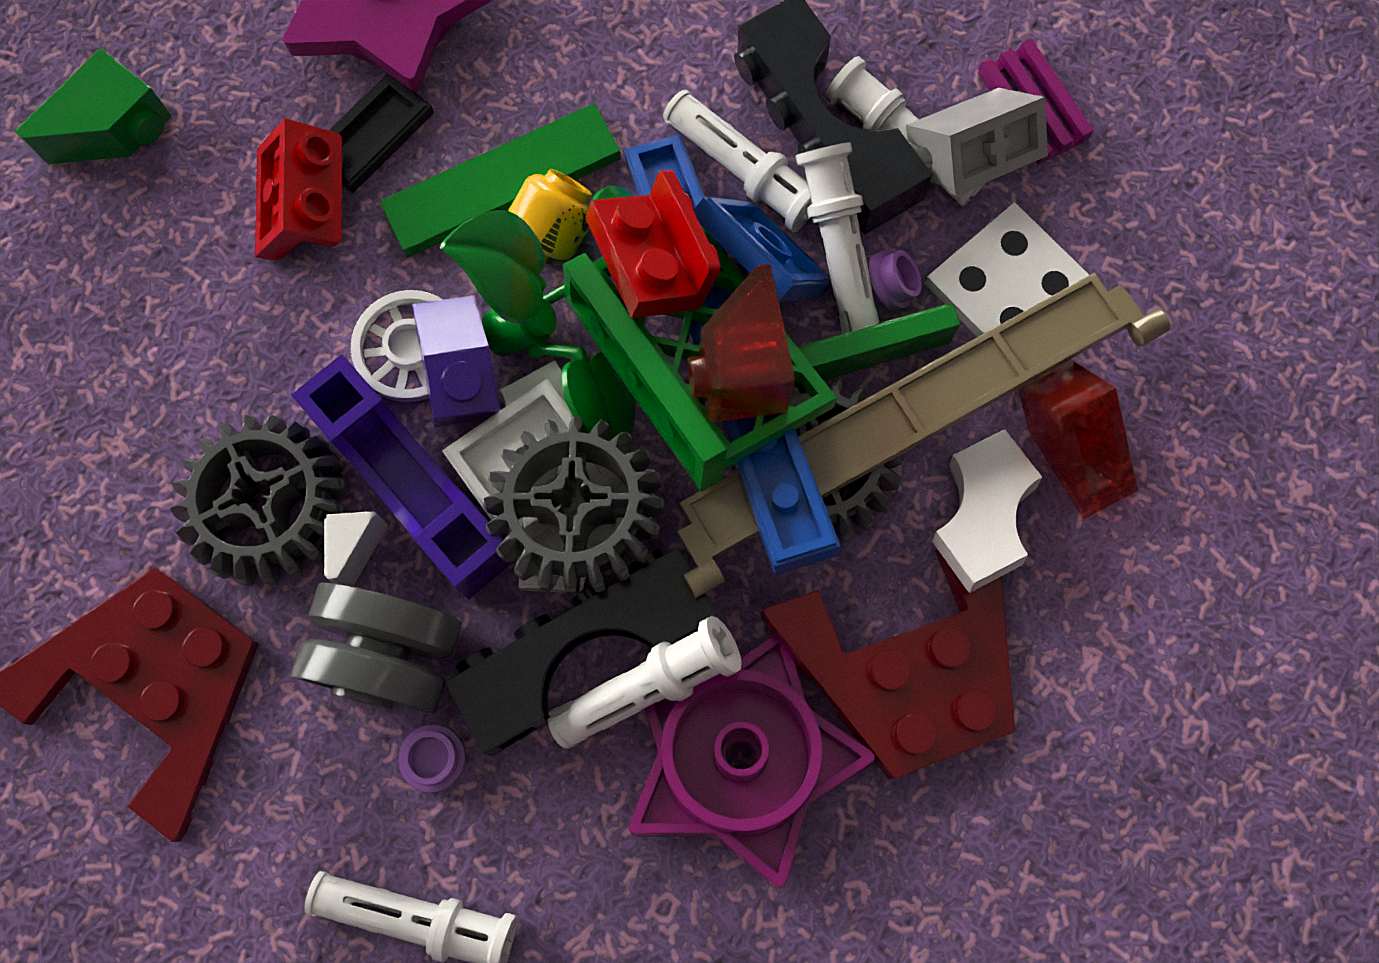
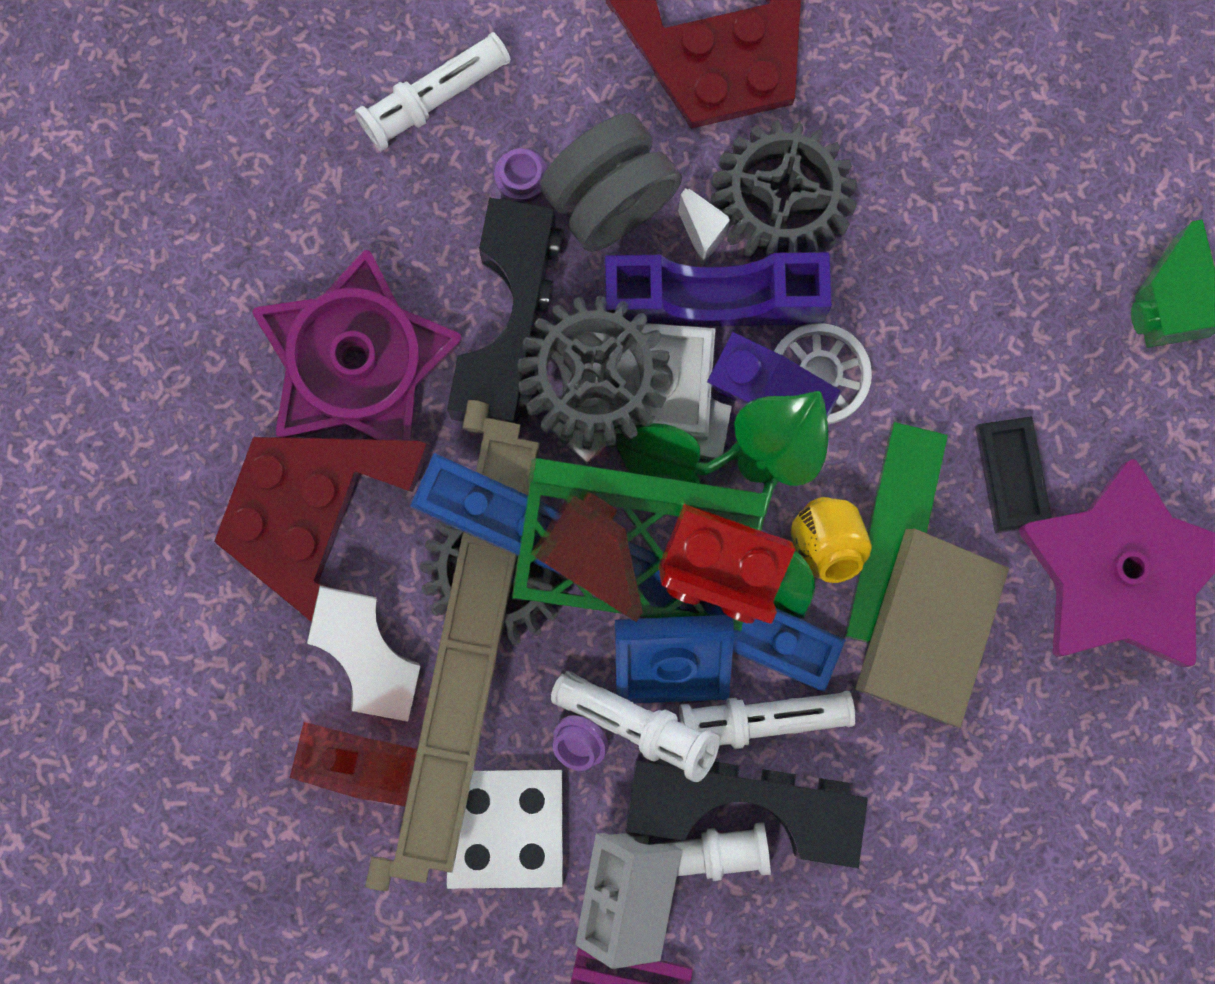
camera: 125 degrees right, 5 degrees up
(298, 189) = (1000, 384): red bracket -> none
(557, 91) = (932, 628): none -> dark tan tile
(667, 673) = (437, 344): white pin -> none
(882, 342) = (544, 678): green tile -> none

